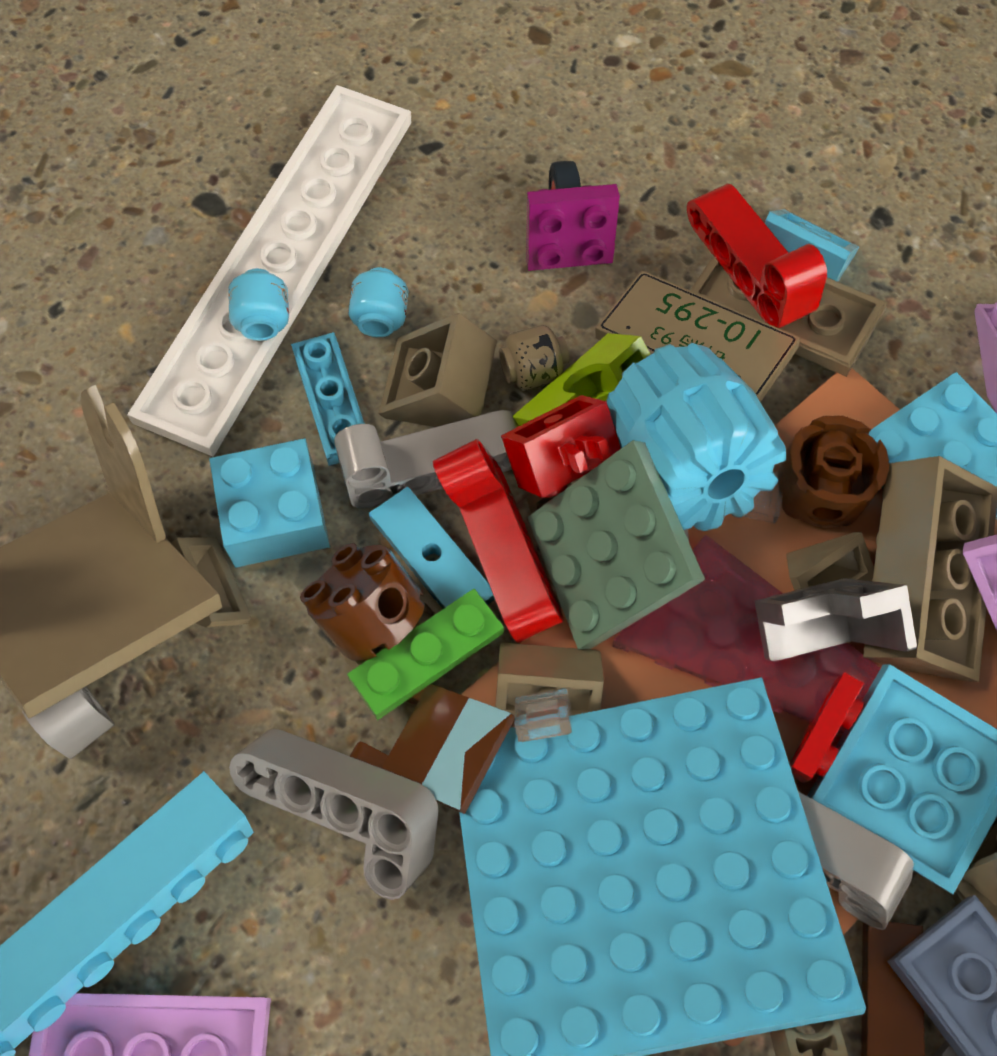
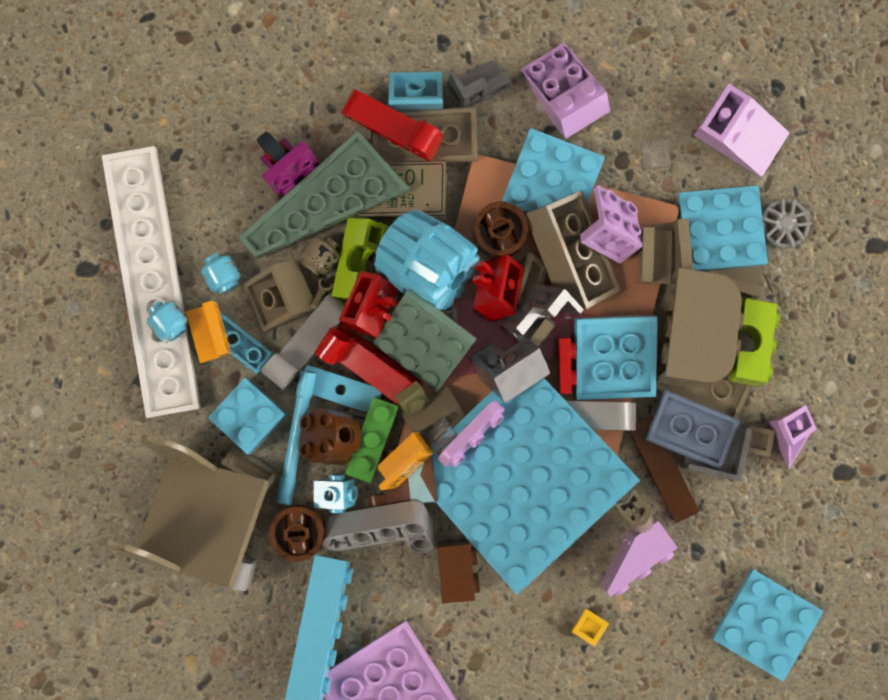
camera: 35 degrees left, 20 degrees up
(204, 717) = (297, 532): none -> reddish brown brick
(255, 634) = (287, 480): none -> medium azure piece
(305, 355) = (208, 332): none -> light orange panel
(309, 697) = (335, 493): none -> medium azure brick
(414, 964) = (456, 571): none -> reddish brown brick
(453, 713) = (404, 461): none -> light orange panel
(505, 403) = (321, 293): none -> dark tan hand
(532, 628) = (412, 399): none -> olive plate
(596, 733) = (472, 434): none -> lavender plate
(618, 289) = (336, 190): none -> sand green wing
(730, 674) = (512, 370): none -> flat silver panel
(781, 541) = (498, 287): none -> red brick
(815, 655) = (543, 331): none -> dark tan tile
(906, 279) = (478, 84): none -> flat silver panel

